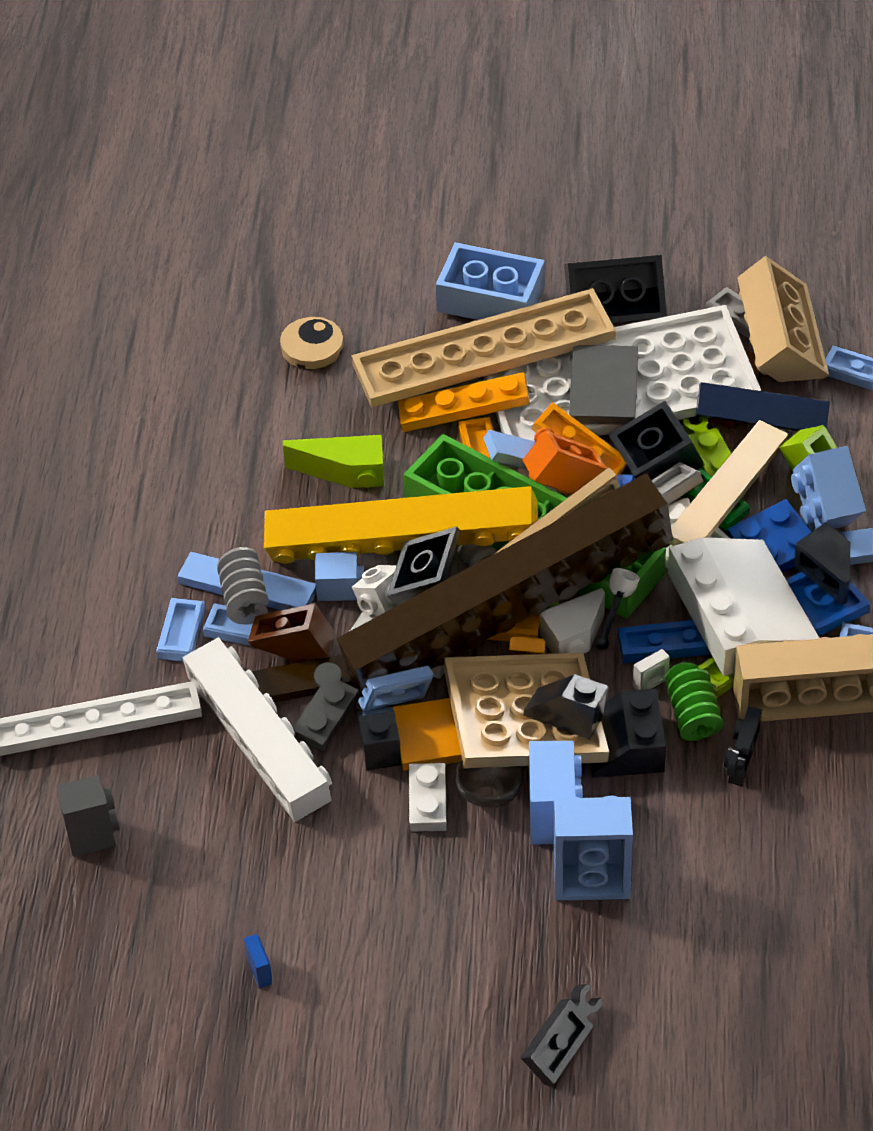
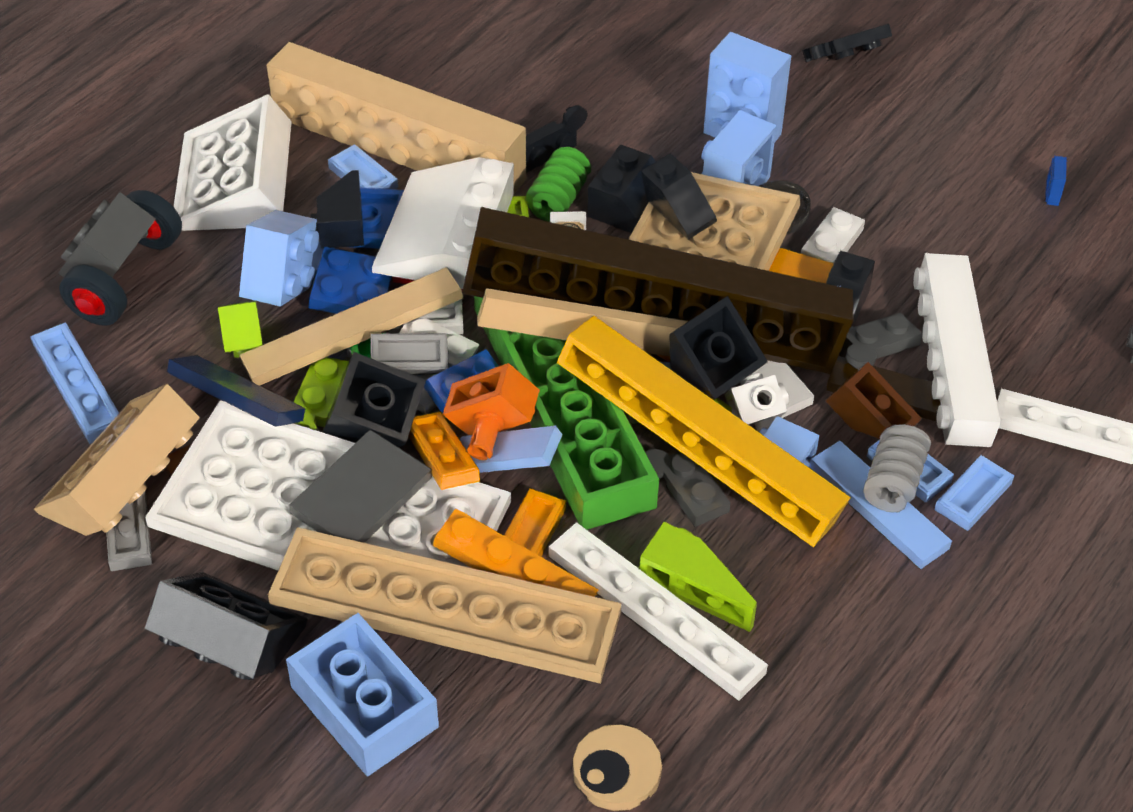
camera: 150 degrees left, 0 degrees up
(397, 434) = (659, 611): none -> white plate

